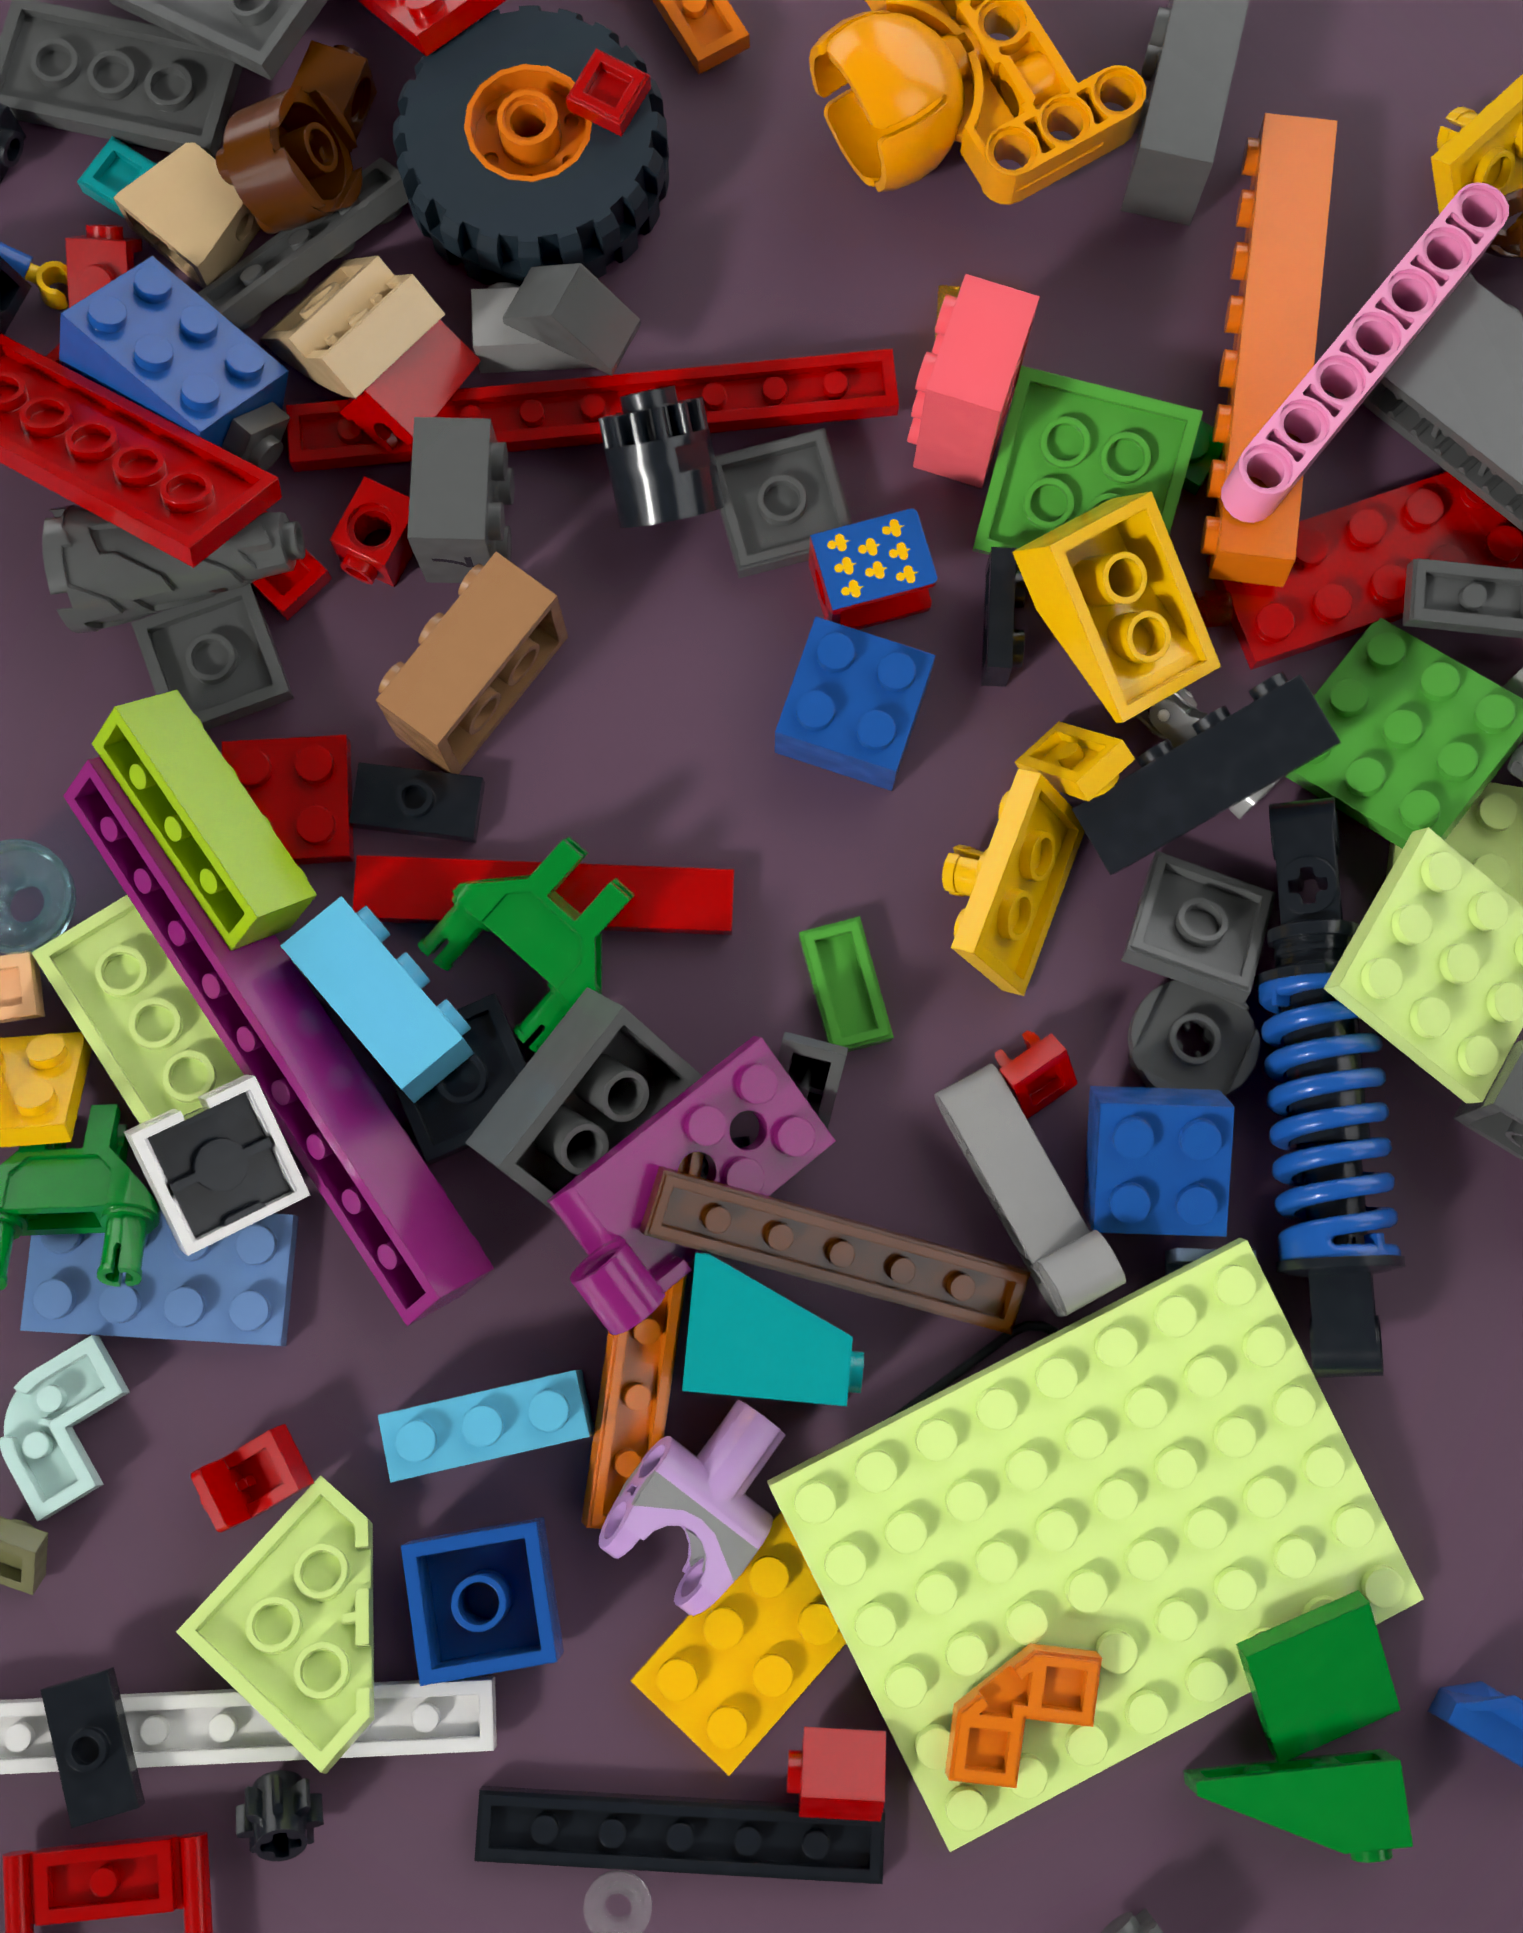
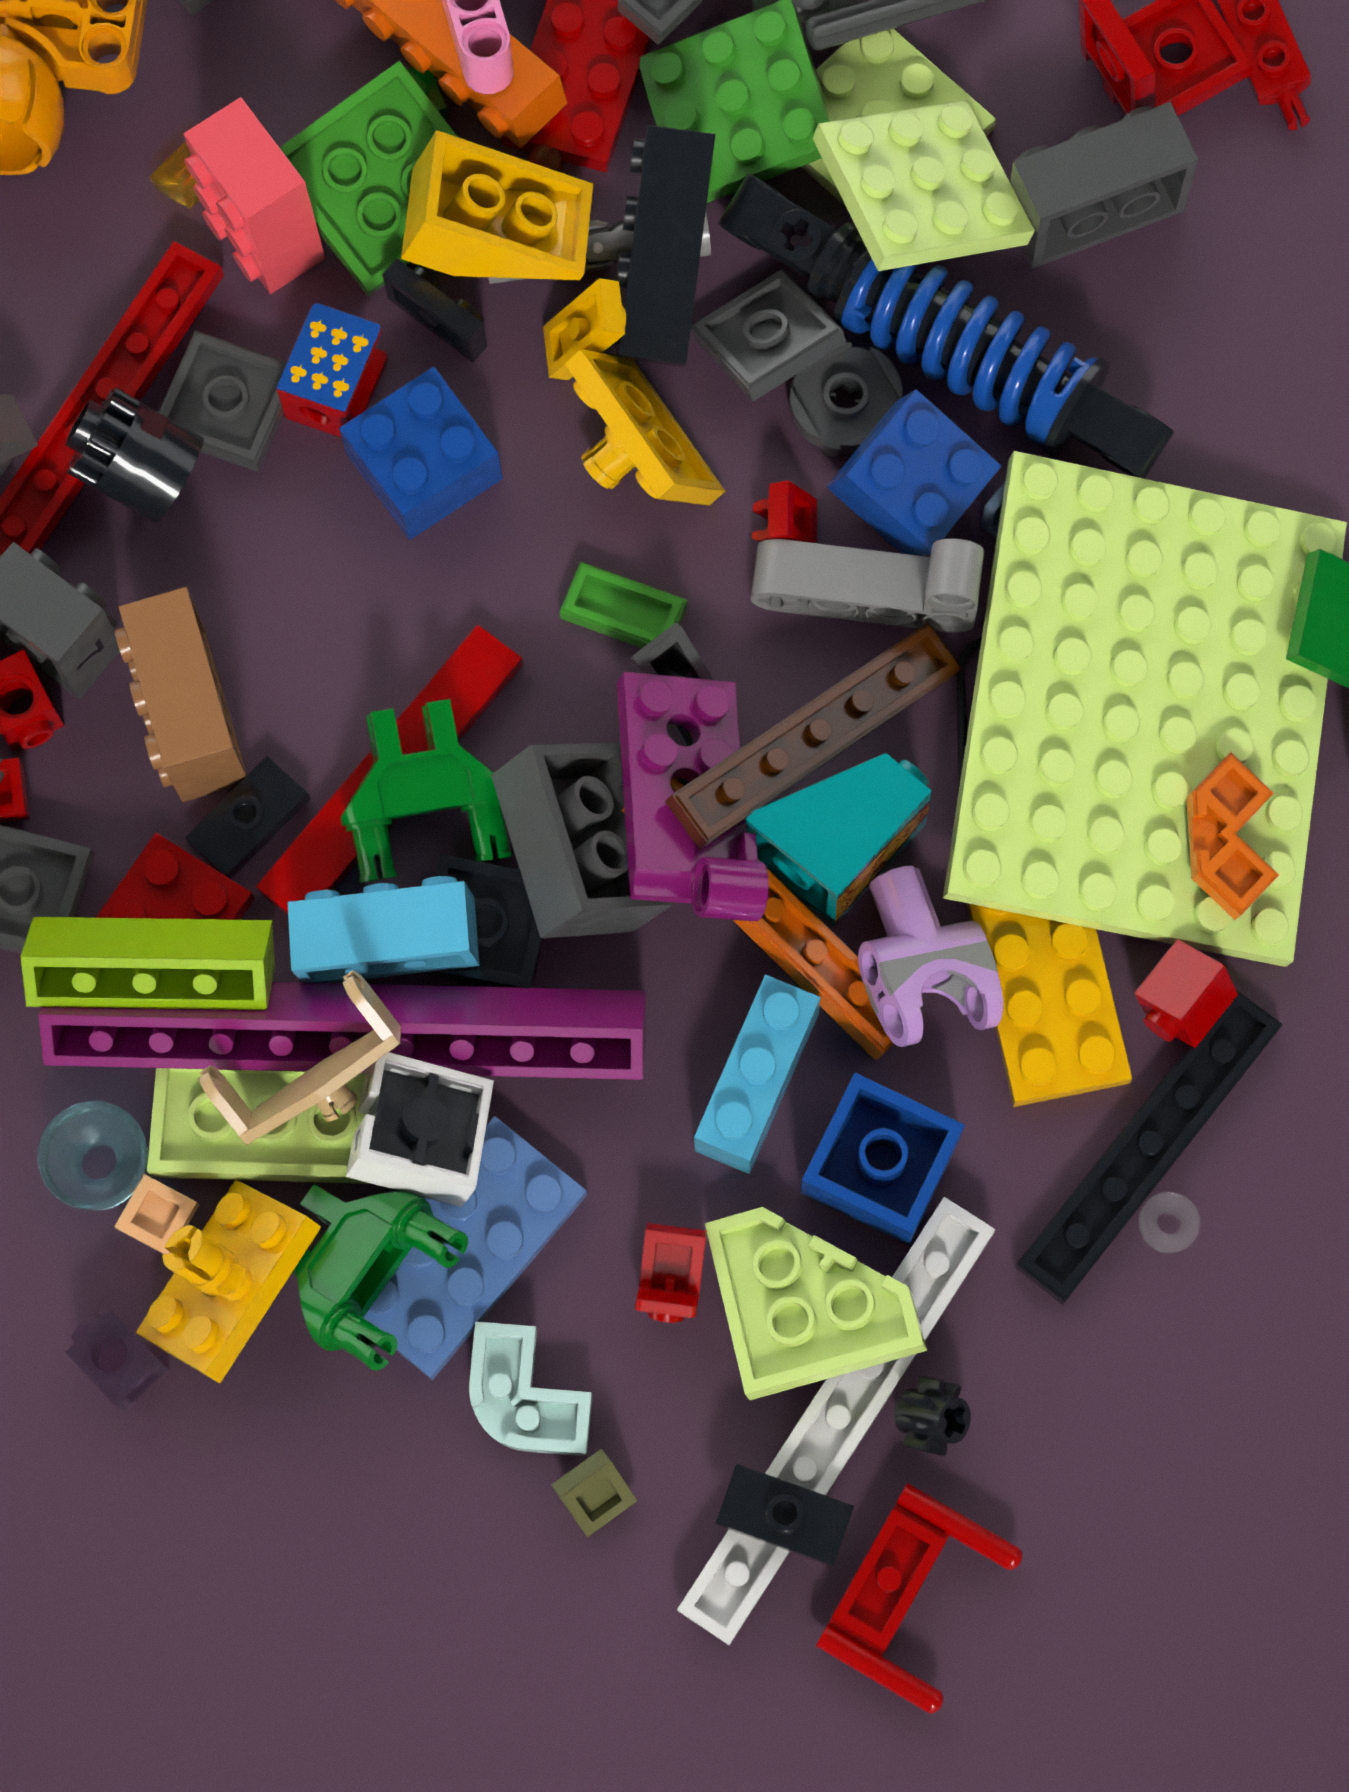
camera: 50 degrees left, 5 degrees down
(194, 1047) = (320, 1085): none -> tan piece

